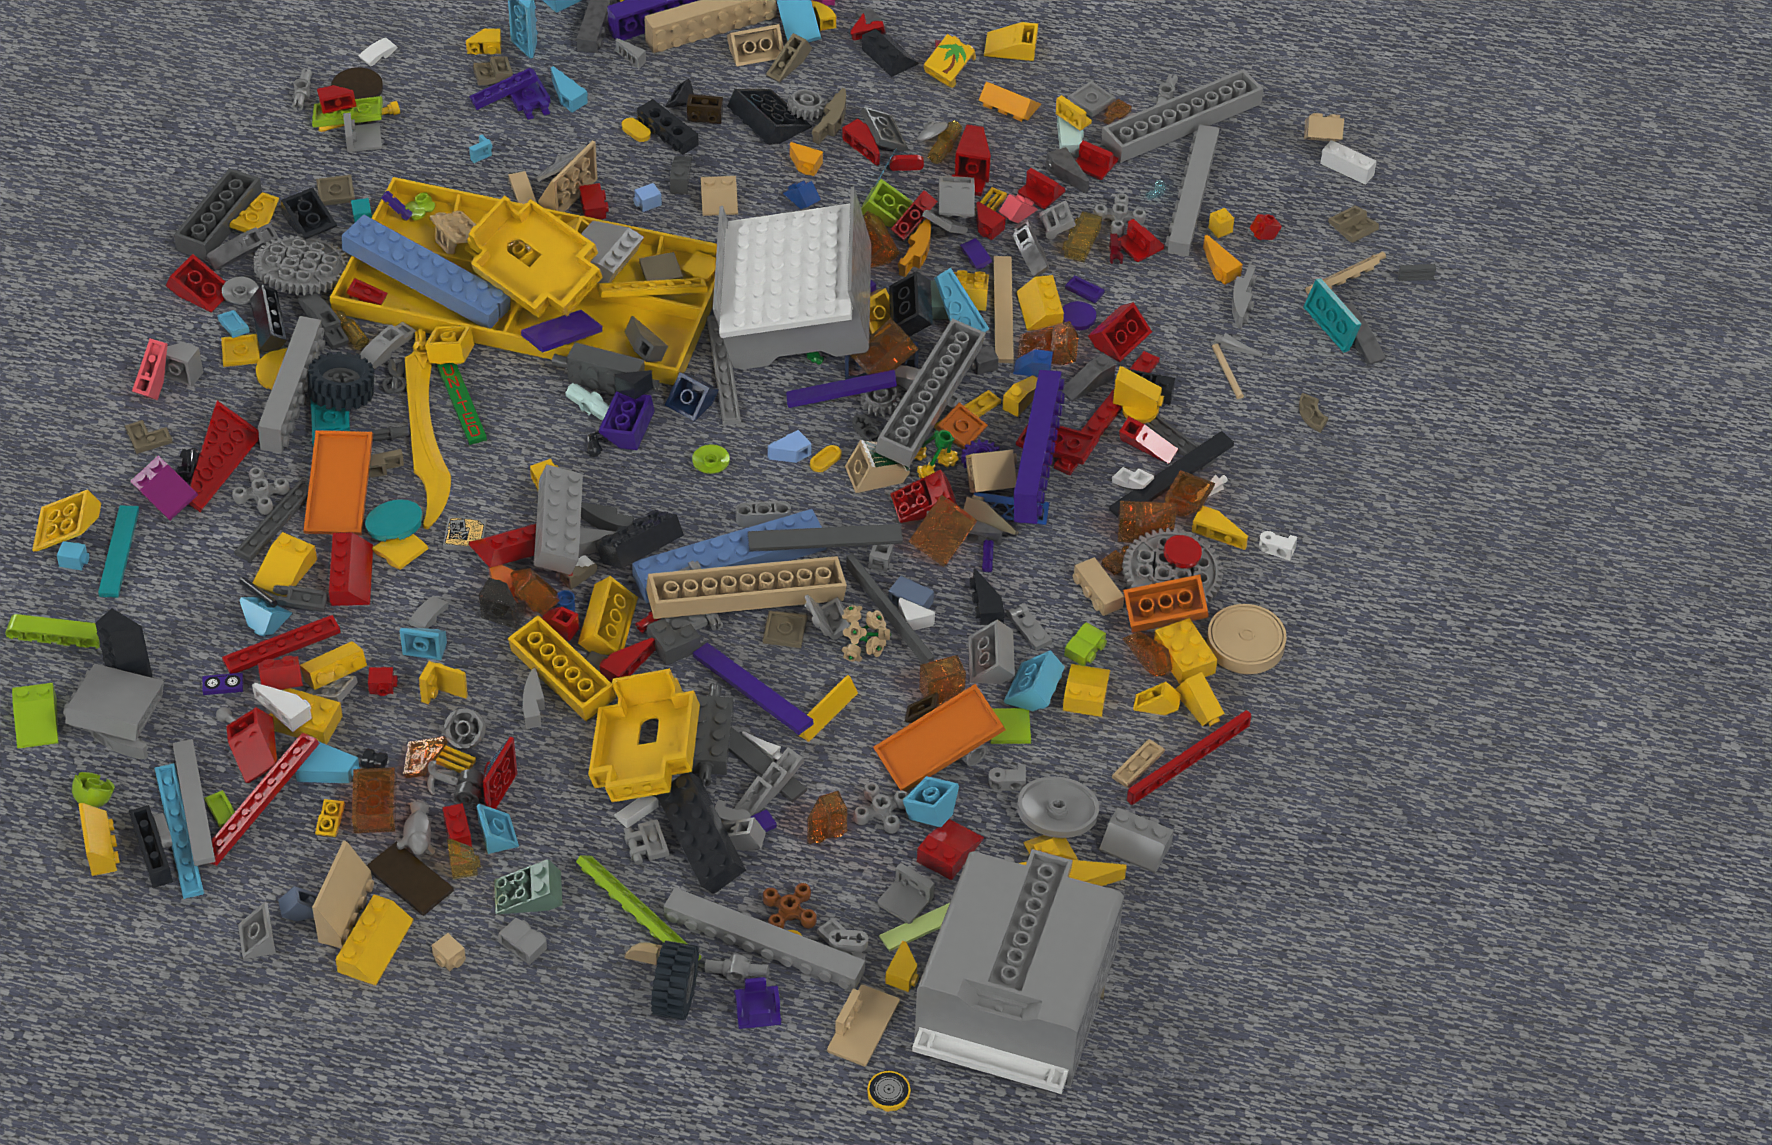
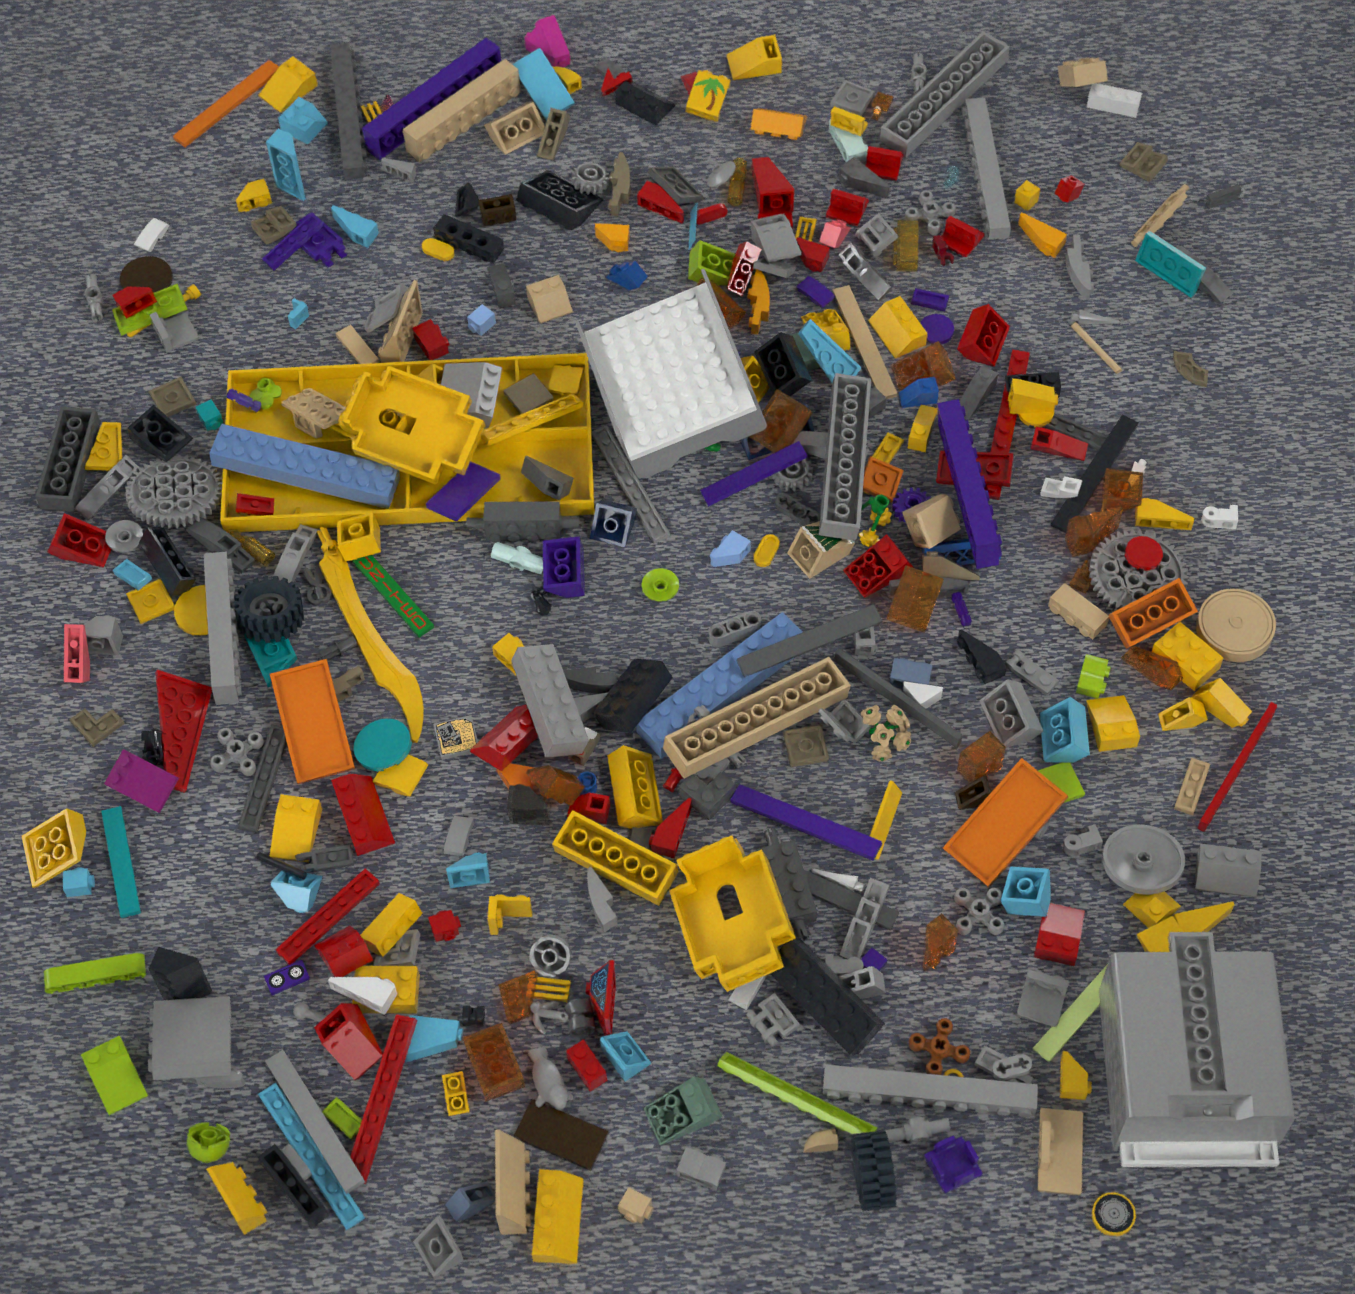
camera: 15 degrees left, 10 degrees up
(462, 860) = (607, 1100): clear yellow slope -> none
(634, 383) = (559, 529): black slope -> none

